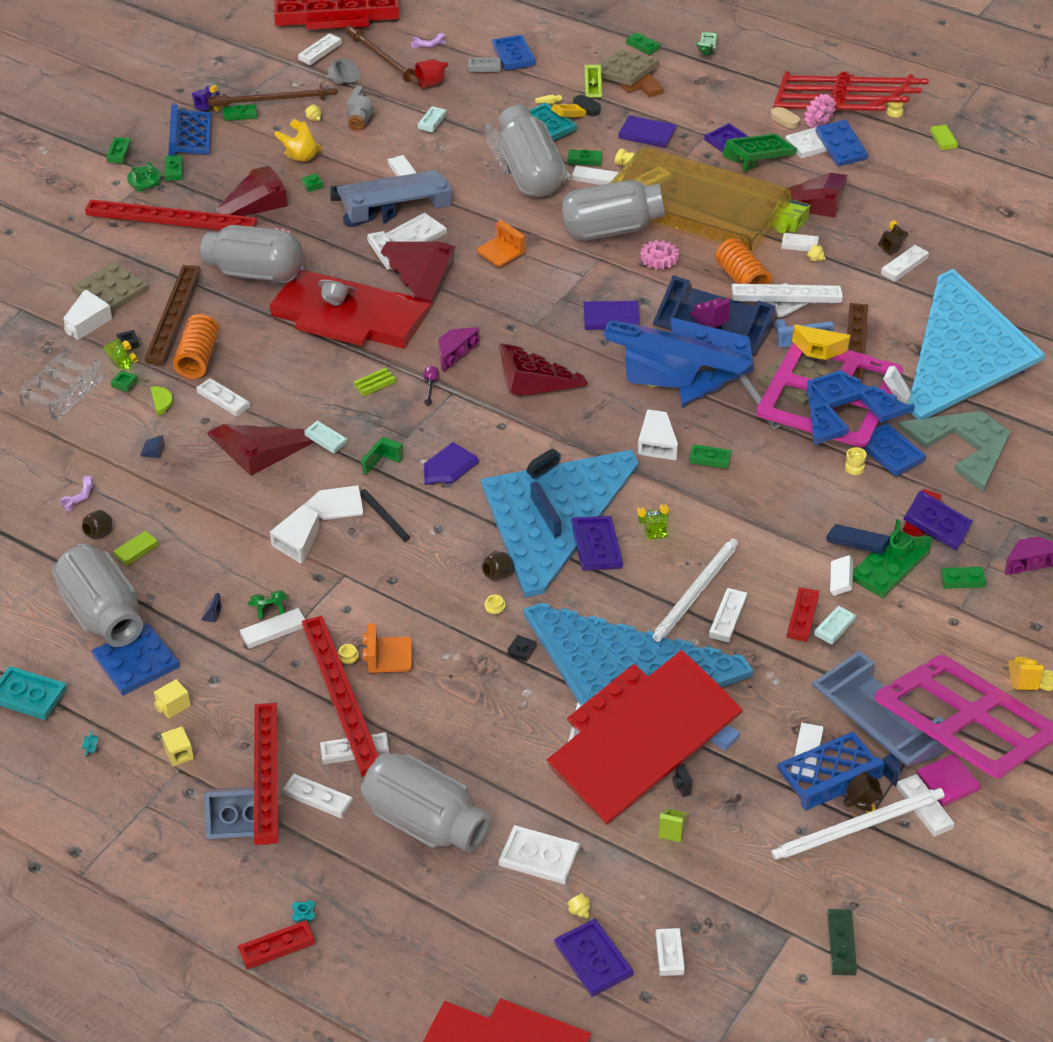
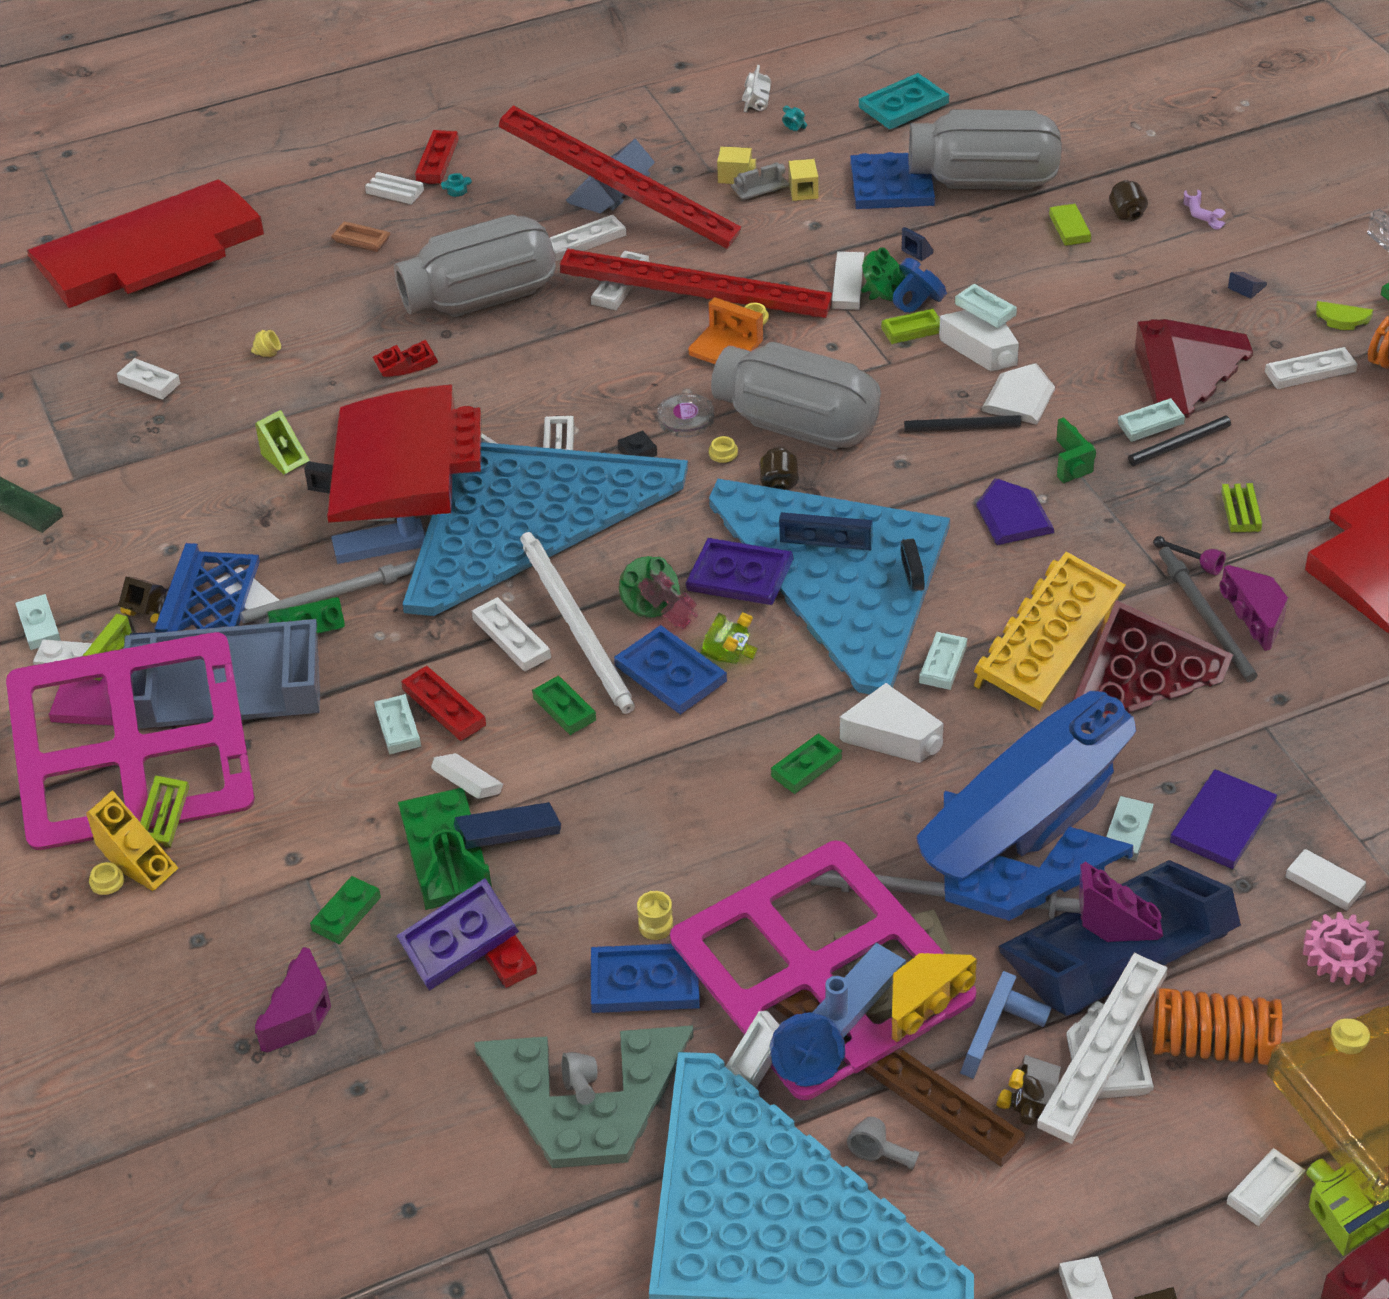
camera: 125 degrees right, 0 degrees up
(60, 789) = (756, 91): none -> white hinge
(194, 729) = (750, 184): none -> light grey hinge
(267, 576) = (920, 284): none -> blue tile
(282, 525) = (985, 305): none -> light aqua plate
(302, 577) = (911, 326): none -> lime tile
(331, 937) = (394, 188): none -> white tile
(333, 424) = (1179, 440): none -> black bar
(410, 934) = (360, 236): none -> nougat tile
(435, 571) = (798, 393): none -> light grey piece
(449, 384) = (1180, 574): none -> dark grey bar
(473, 640) = (685, 414): none -> clear tile
(530, 817) = (396, 363): none -> red slope
(538, 411) = (1049, 630): none -> yellow bracket
(539, 854) = (353, 348): white tile -> none
(546, 692) = (559, 420): none -> white tile
(592, 439) = (943, 660): none -> light aqua plate
(593, 957) = (205, 336): dark purple tile -> none
(620, 275) = (1325, 879): none -> white tile
(638, 565) = (633, 575): none -> green plate
(648, 551) = (661, 589): none -> clear pink hinge
(693, 537) = (670, 669): none -> blue plate
(725, 217) = (1350, 1036): none -> light yellow plate
(758, 565) = (564, 705): none -> green plate
(783, 717) = (385, 575): none -> light grey bar
(816, 253) = (1207, 1180): light yellow plate -> none
(819, 705) = (326, 612): none -> green bracket
(825, 309) = (1034, 1085): none -> dark brown piece
(840, 389) = (797, 954): blue wing -> none
(853, 367) = (852, 996): none -> medium blue piece
(857, 824) = (73, 642): white piece -> none
(890, 357) = (807, 1049): none -> blue tile
(896, 345) = (869, 1143): none -> light grey bar
(919, 772) = (111, 637): none -> lime tile
(922, 850) = (37, 621): none -> light aqua plate
(963, 445) = (577, 1073): none -> light grey bar
(989, 680) = (171, 784): none -> lime tile

